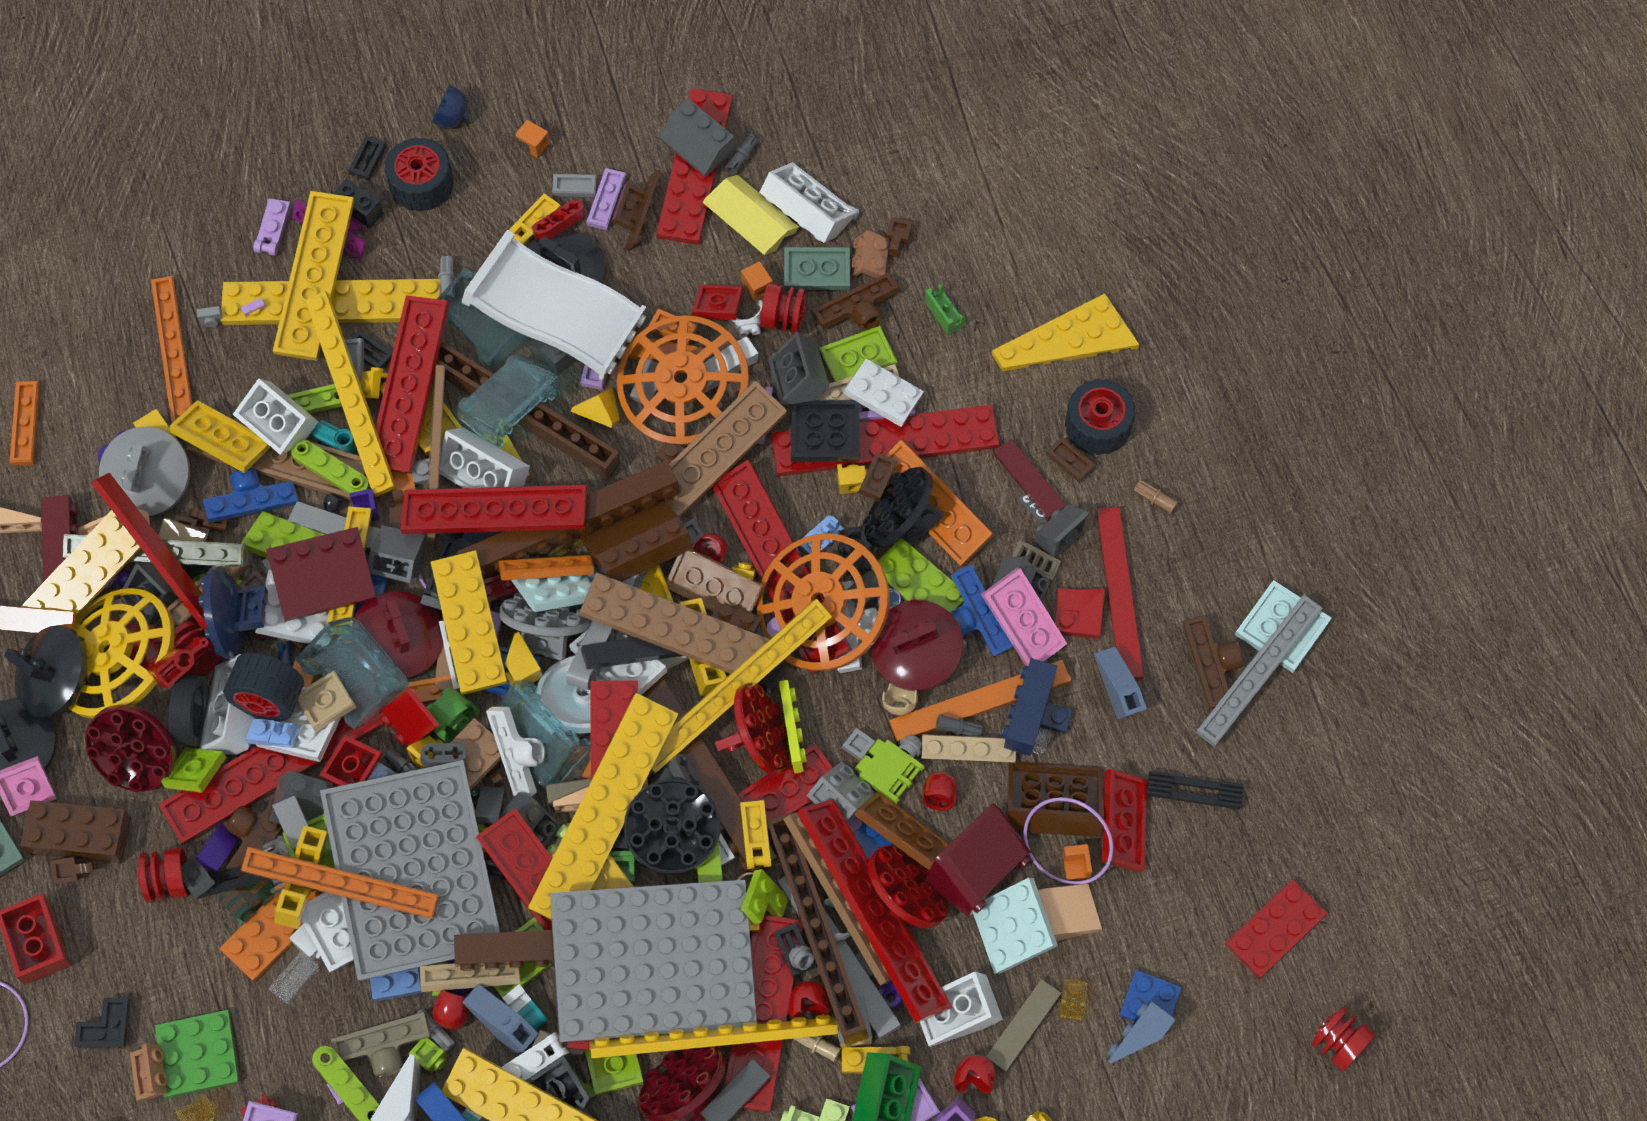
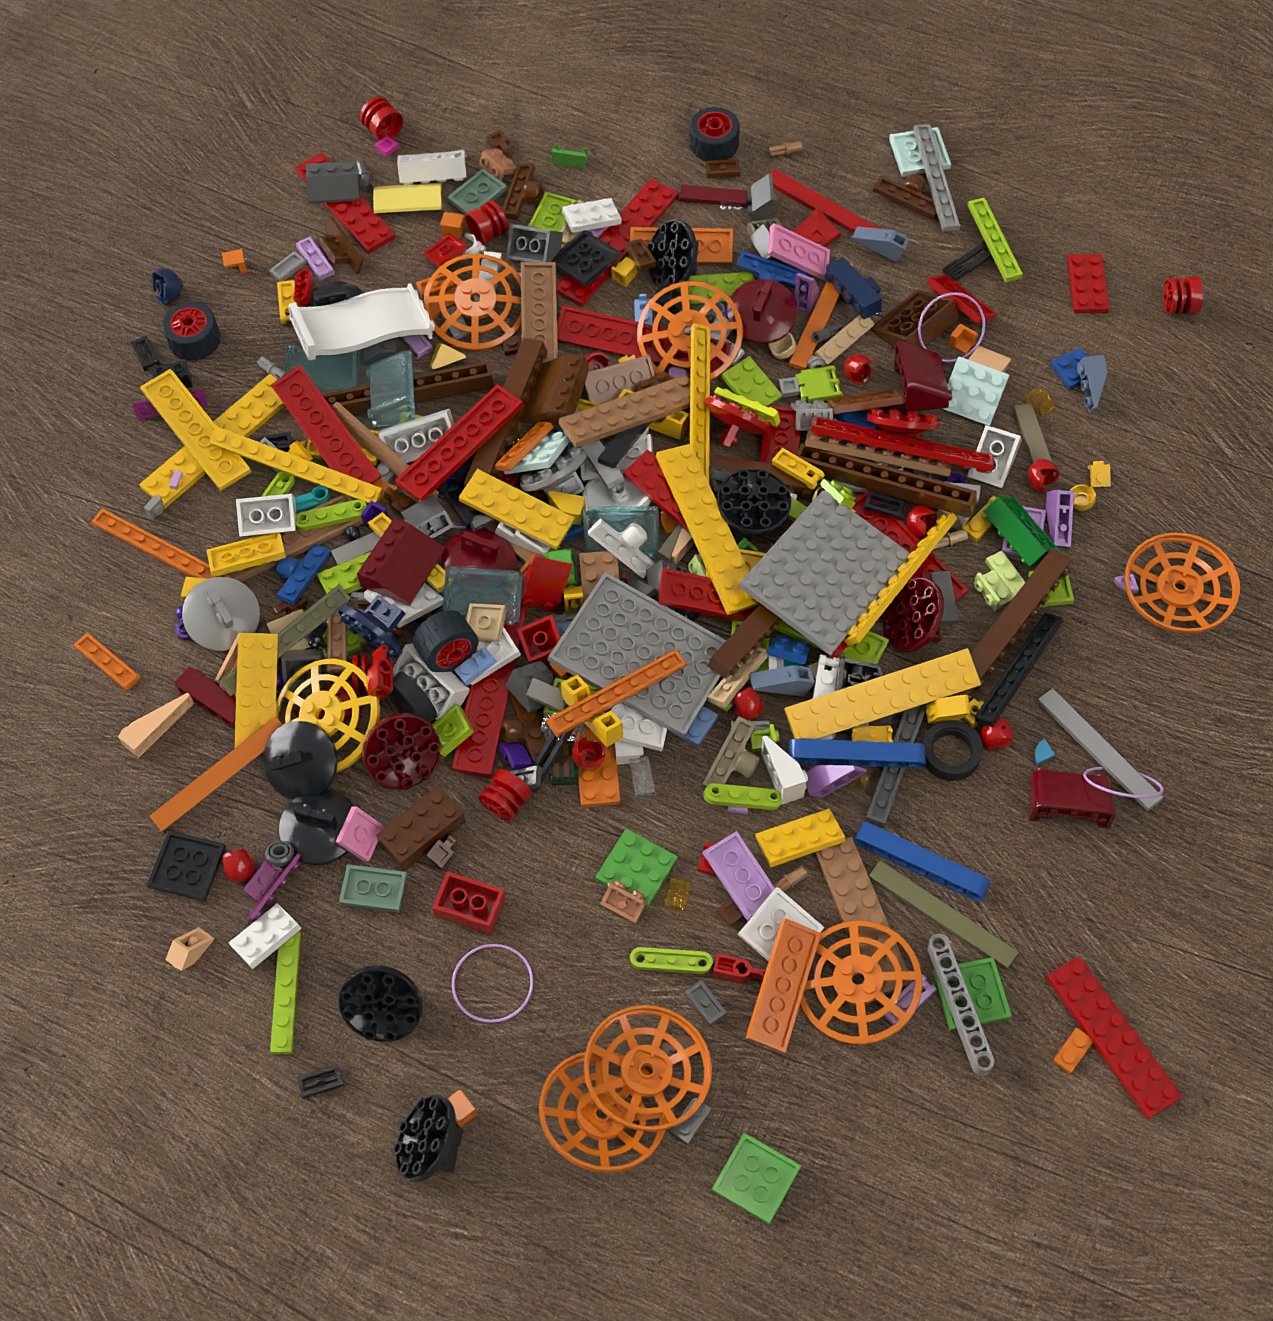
camera: 45 degrees left, 5 degrees down
(110, 1031) = (573, 906): black plate -> none
(151, 544) = (292, 633): red tile -> none
(259, 904) = (590, 750): none -> red helmet
(272, 226) = (132, 433): lavender plate -> none
(442, 753) = (587, 580): dark grey beam -> none
(539, 996) = (789, 649): none -> blue plate
(794, 142) = (386, 146): none -> dark pink plate
(801, 957) = (895, 500): light grey plate -> none
(815, 110) = (381, 118): none -> red wheel
(826, 708) = (751, 382): none -> lime plate
(982, 666) = (805, 293): none -> medium lavender slope
(1074, 335) = (649, 115): yellow wing -> none
(1231, 793) = (995, 240): none -> lime plate

